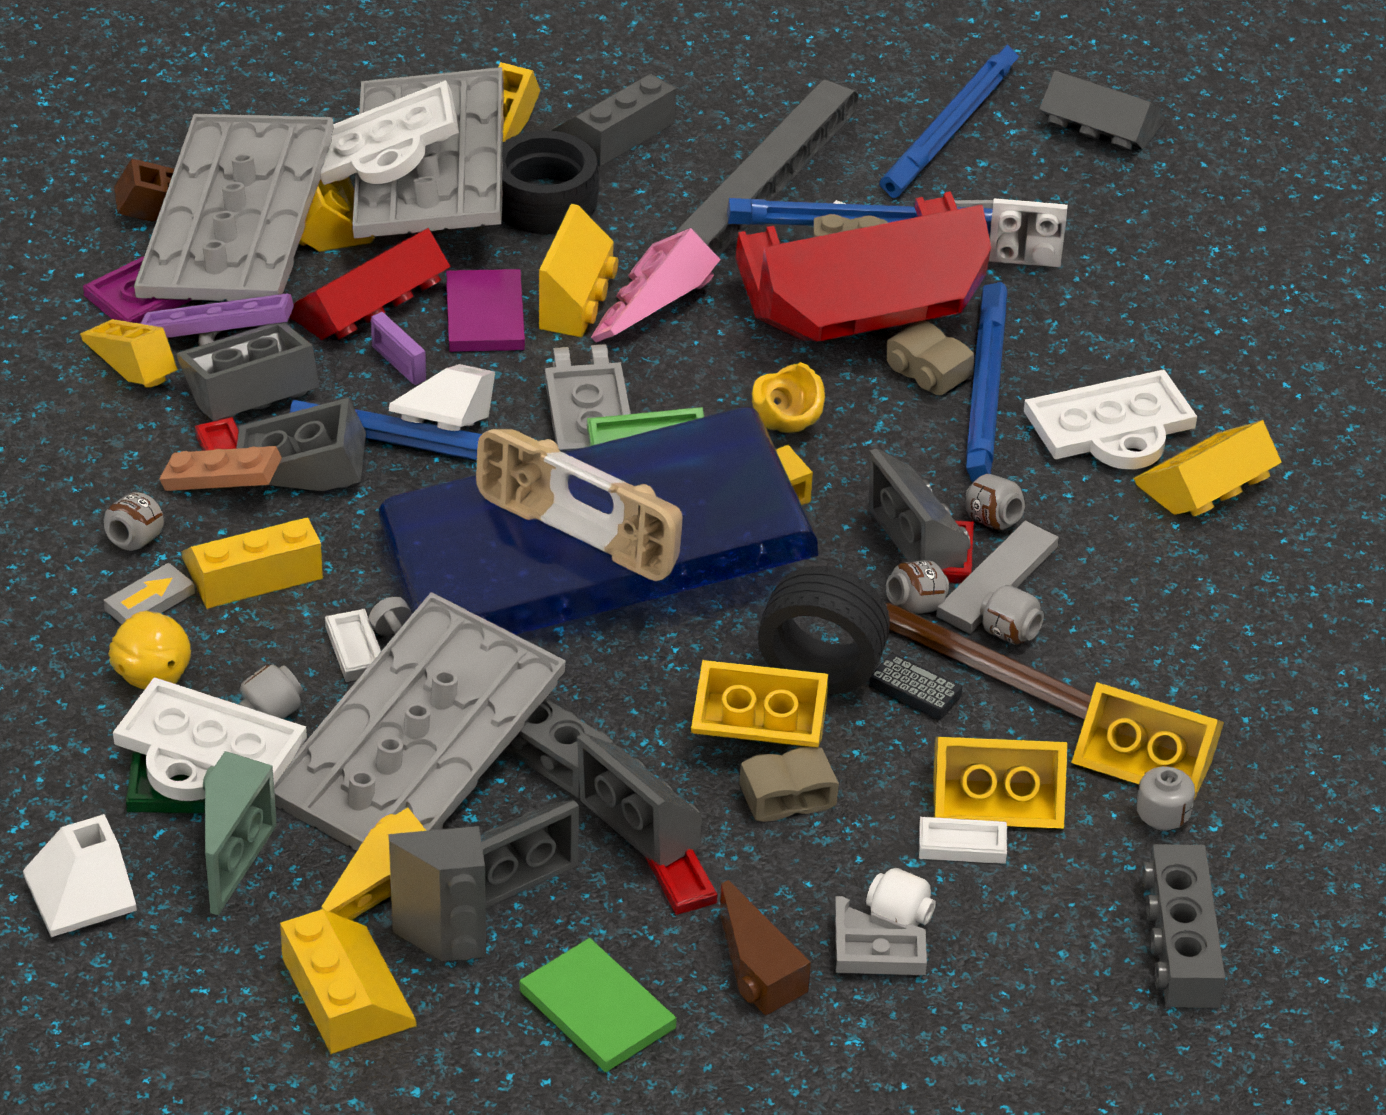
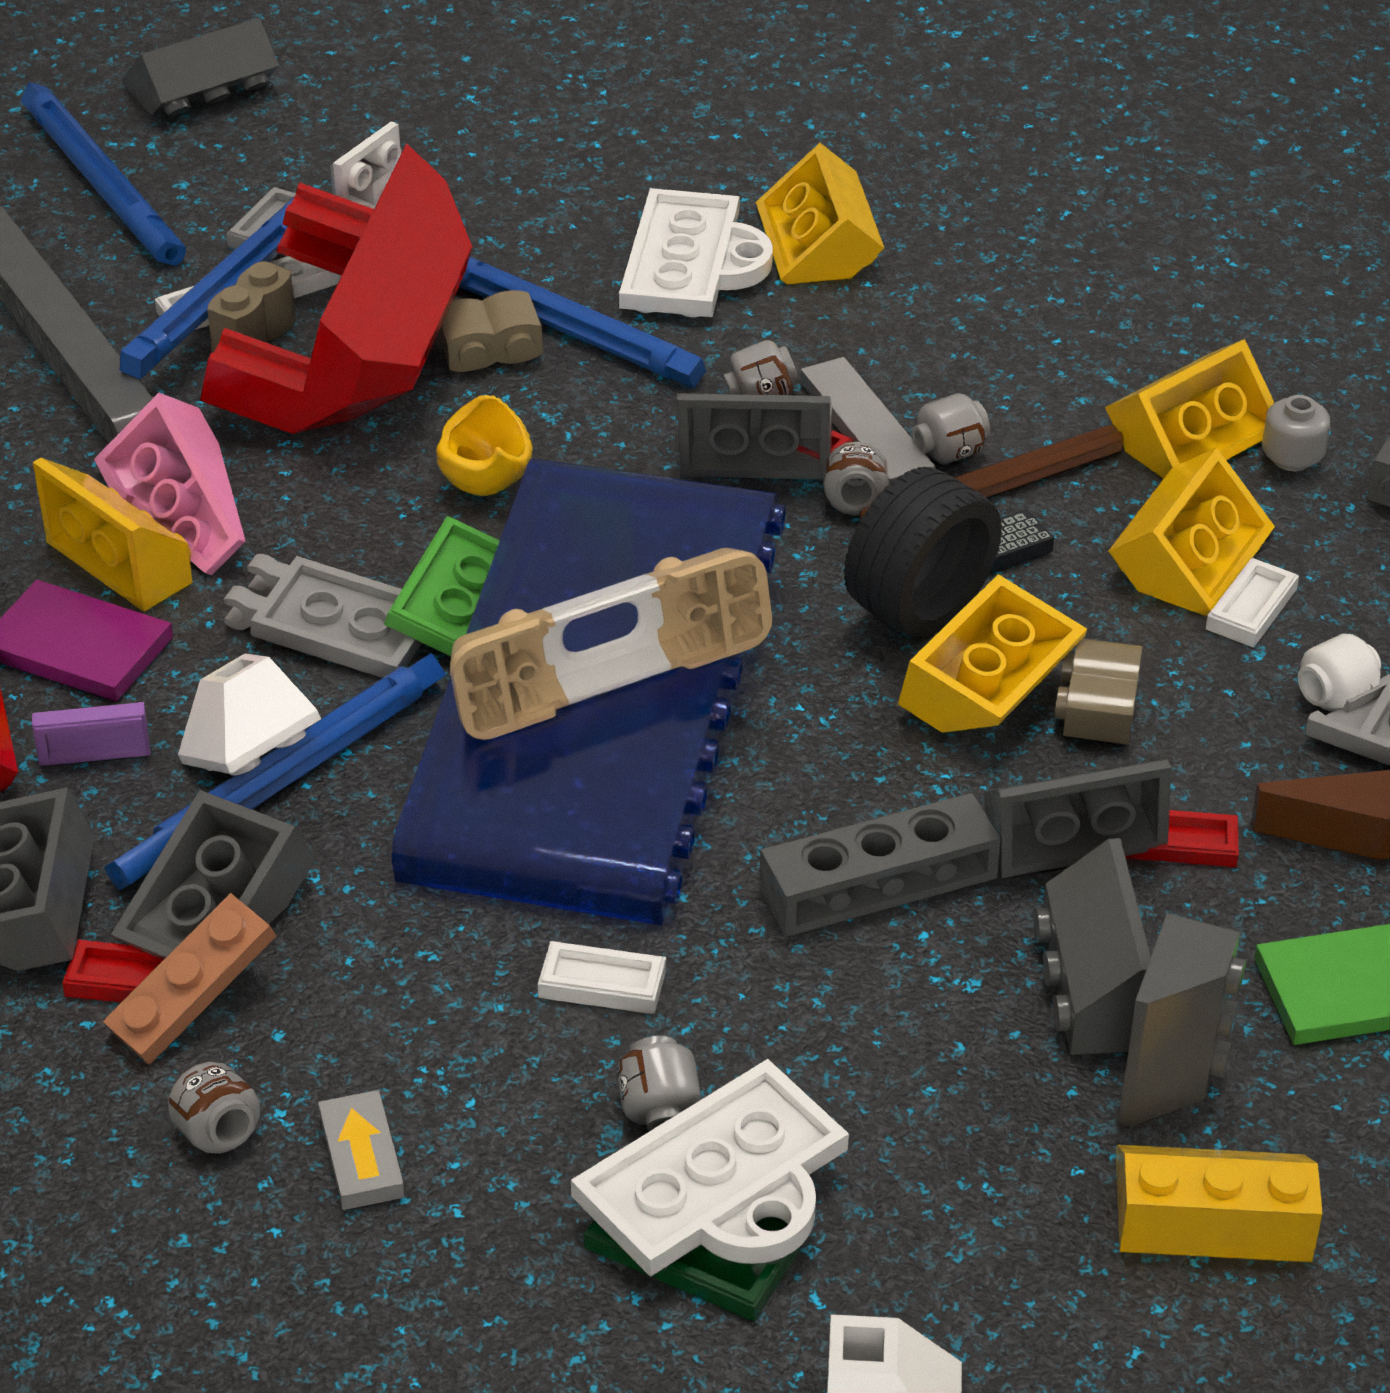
camera: 60 degrees left, 0 degrees up
(146, 646) = (501, 1173): yellow piece -> none
(237, 821) = (912, 1199): sand green slope -> none
(255, 562) = (375, 1012): yellow slope -> none
(368, 873) = (1056, 1082): yellow slope -> none
(389, 615) = (589, 916): light grey tile -> none
(418, 724) = (841, 958): light grey piece -> none

